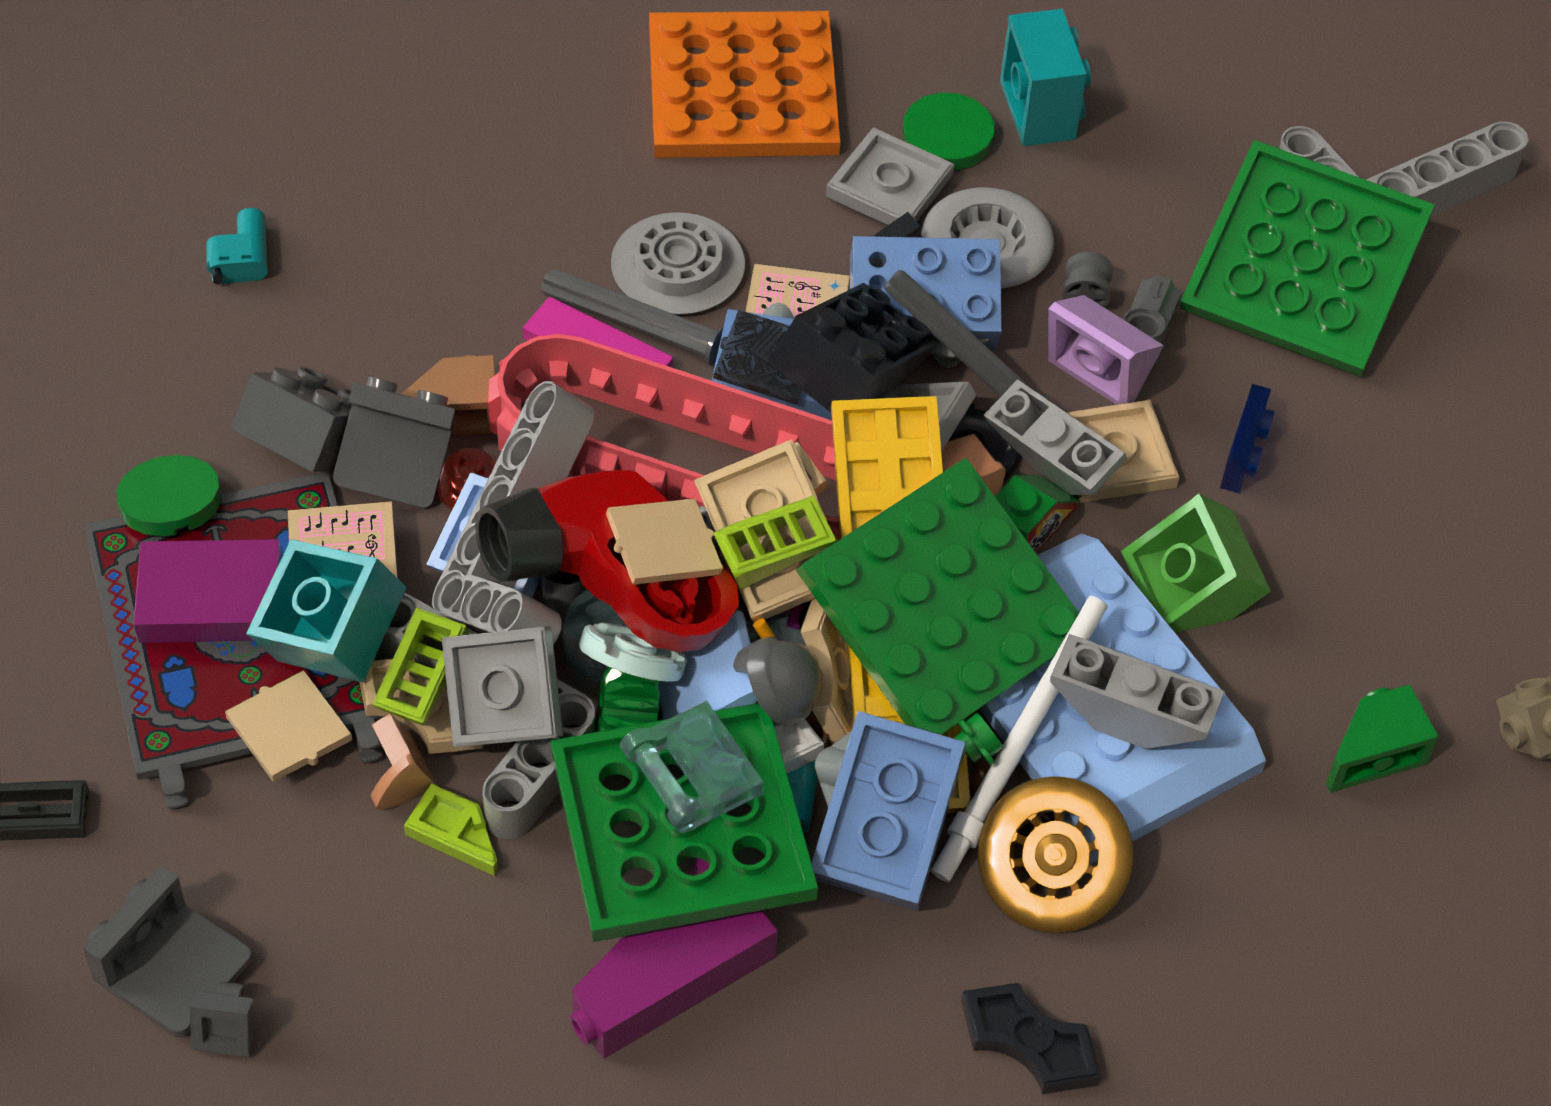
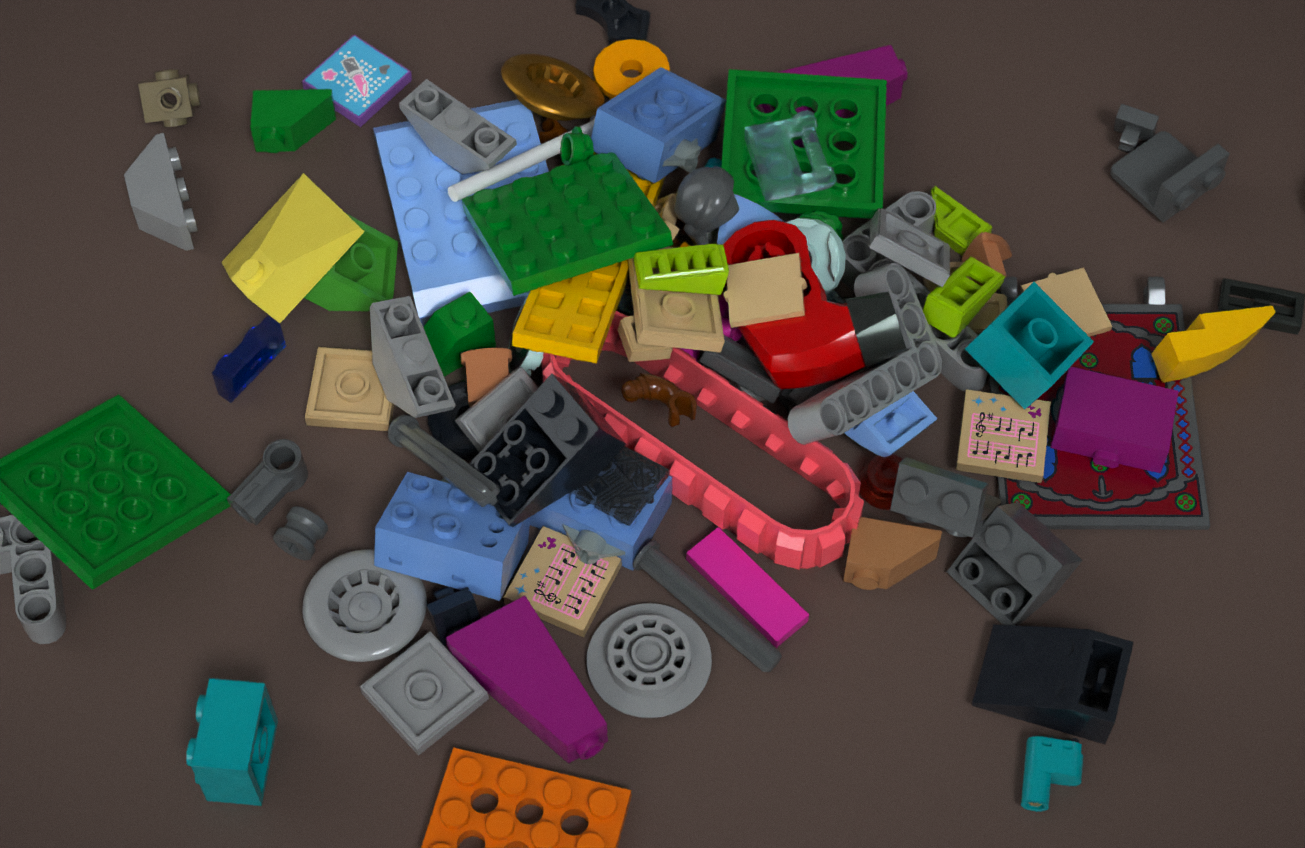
camera: 160 degrees left, 5 degrees up
(90, 711) = (1208, 342): none -> yellow slope
(168, 495) = (1138, 524): green tile -> none
(243, 313) = (1055, 678): none -> black slope
(756, 435) = (656, 388): none -> reddish brown piece
(787, 205) = (531, 679): none -> magenta slope
(950, 128) = (343, 744): green tile -> none
(971, 914) = (626, 56): none -> light orange tile
(1100, 348) = (329, 439): lavender slope -> none
(1271, 526) = (291, 248): none -> light yellow slope
(1327, 835) = (359, 79): none -> tile
(1468, 597) = (159, 196): none -> light grey slope

